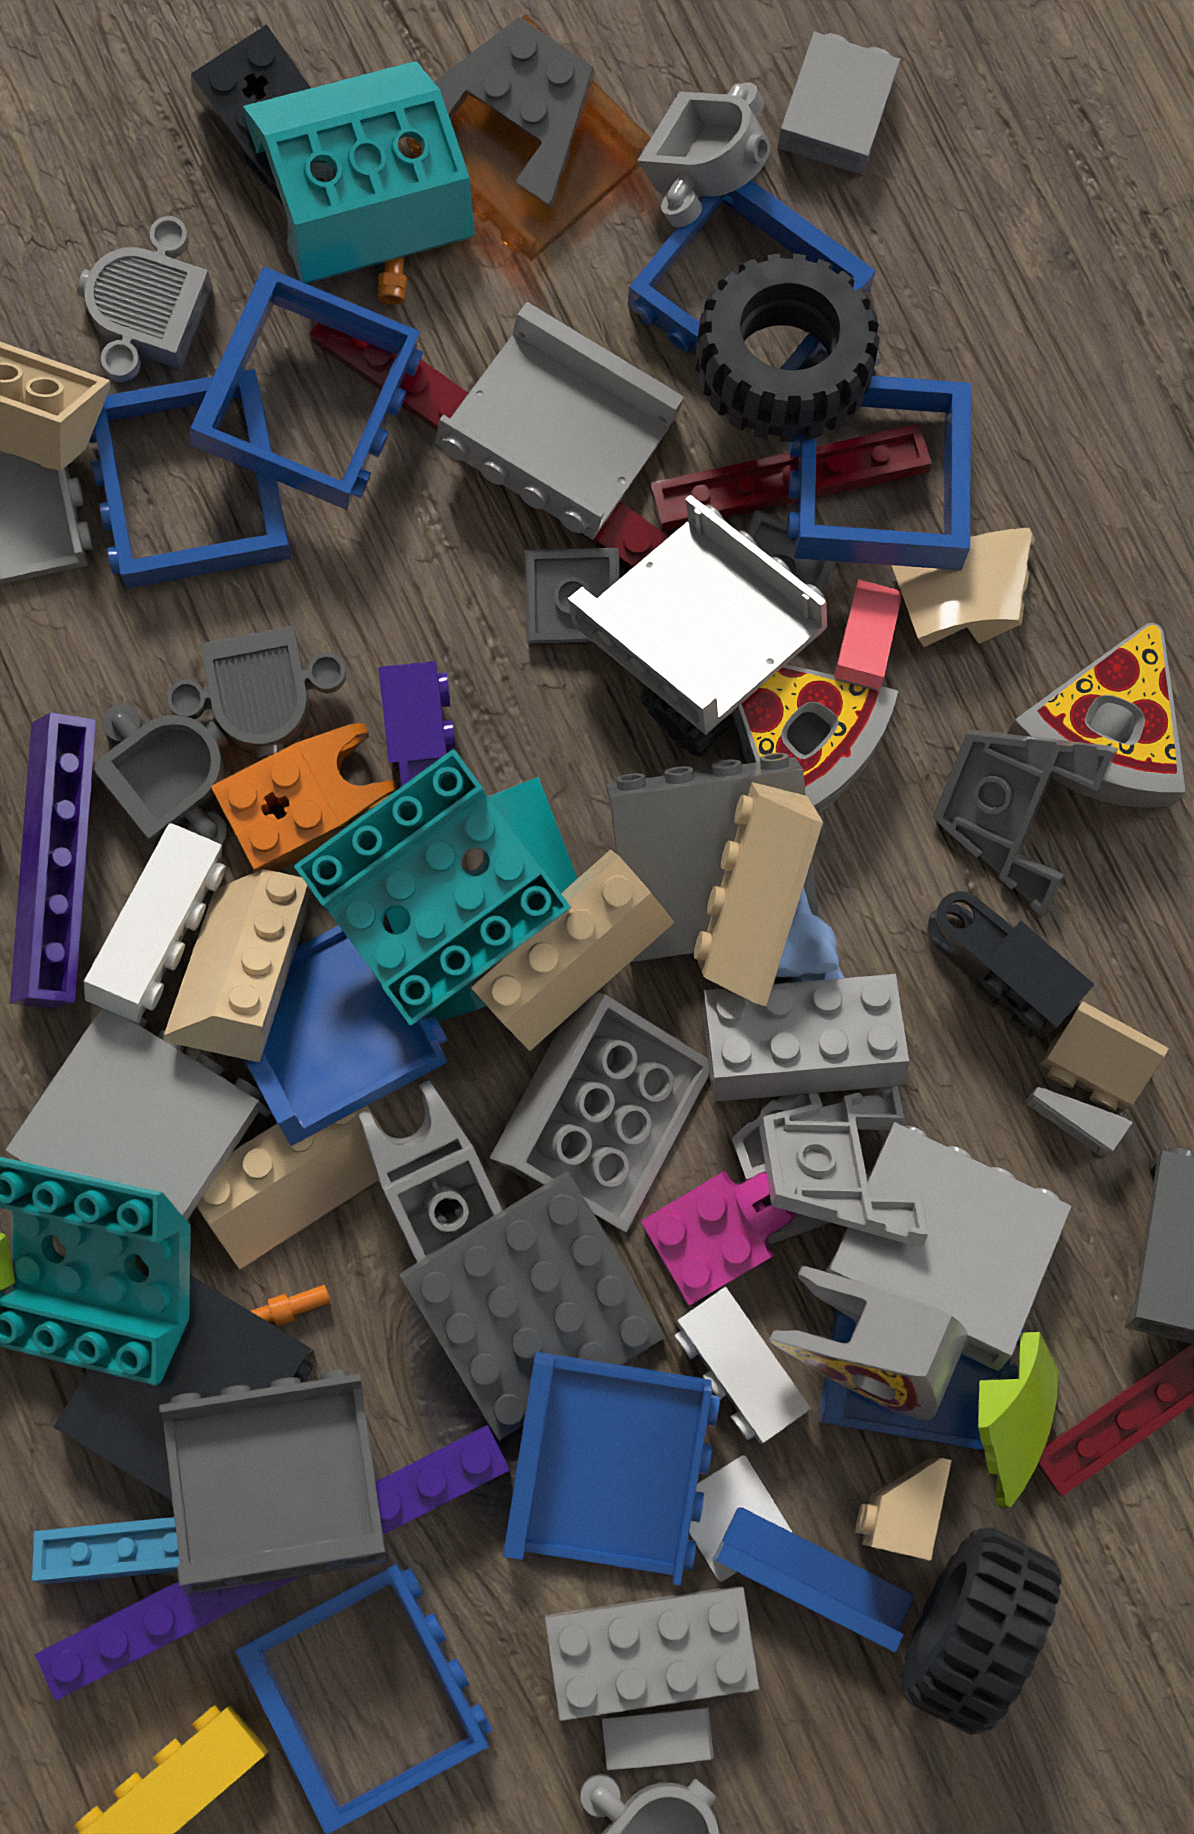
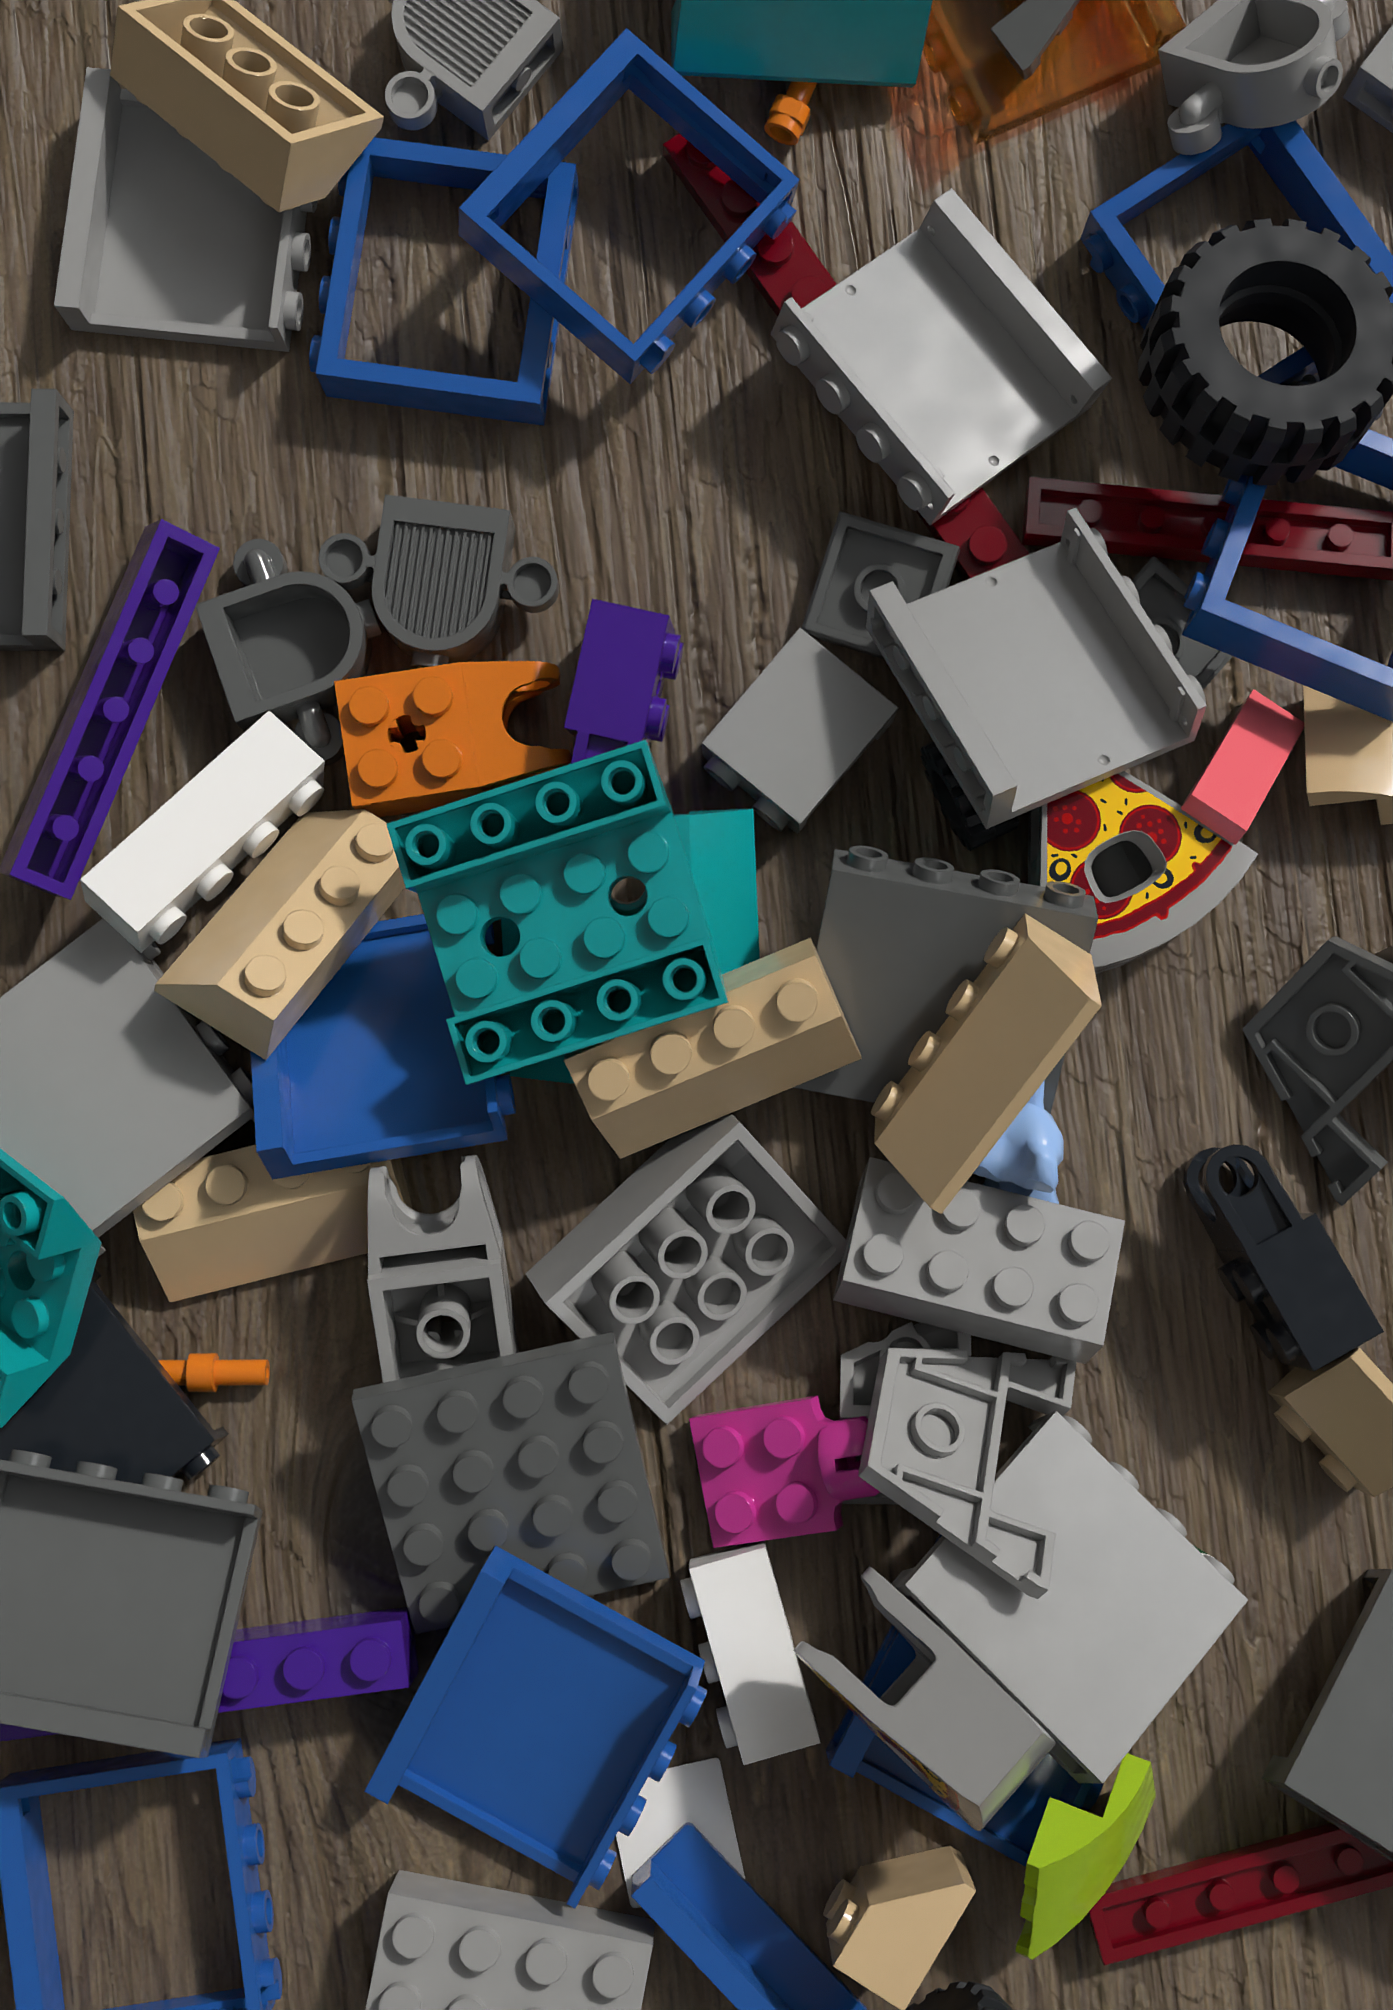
camera: 30 degrees right, 5 degrees up
(548, 715) = (796, 732): none -> light grey panel
(1087, 1124) = (1309, 1501): light grey slope -> none

